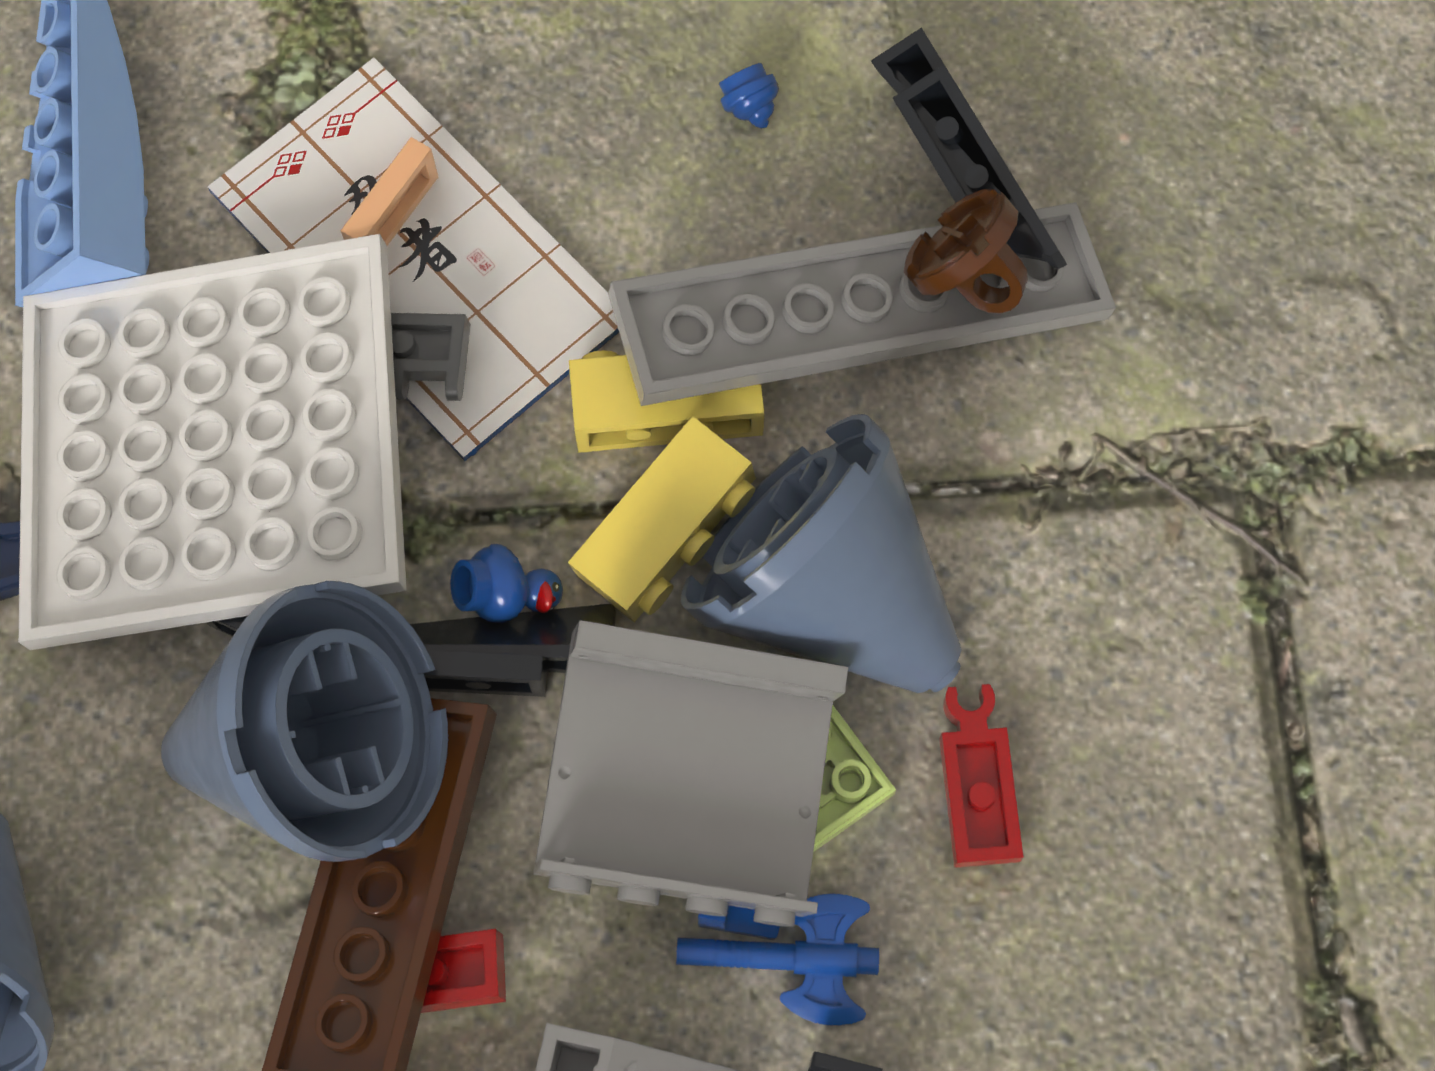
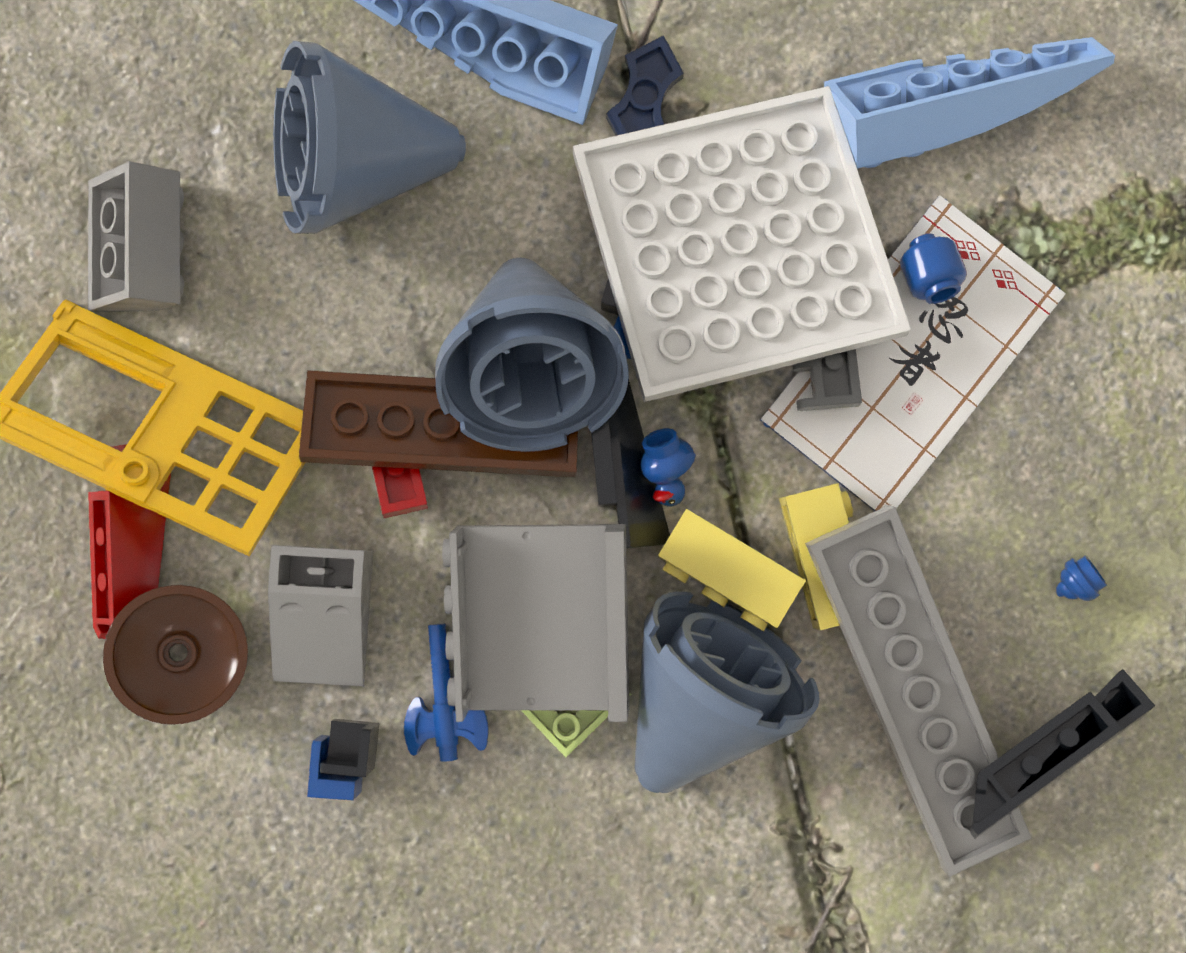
camera: 80 degrees right, 15 degrees up
(304, 202) = (933, 268): none -> blue head
(394, 194) = (947, 331): light nougat tile -> none
(969, 246) = (967, 765): reddish brown tile -> none
(979, 785) = (577, 815): red plate -> none

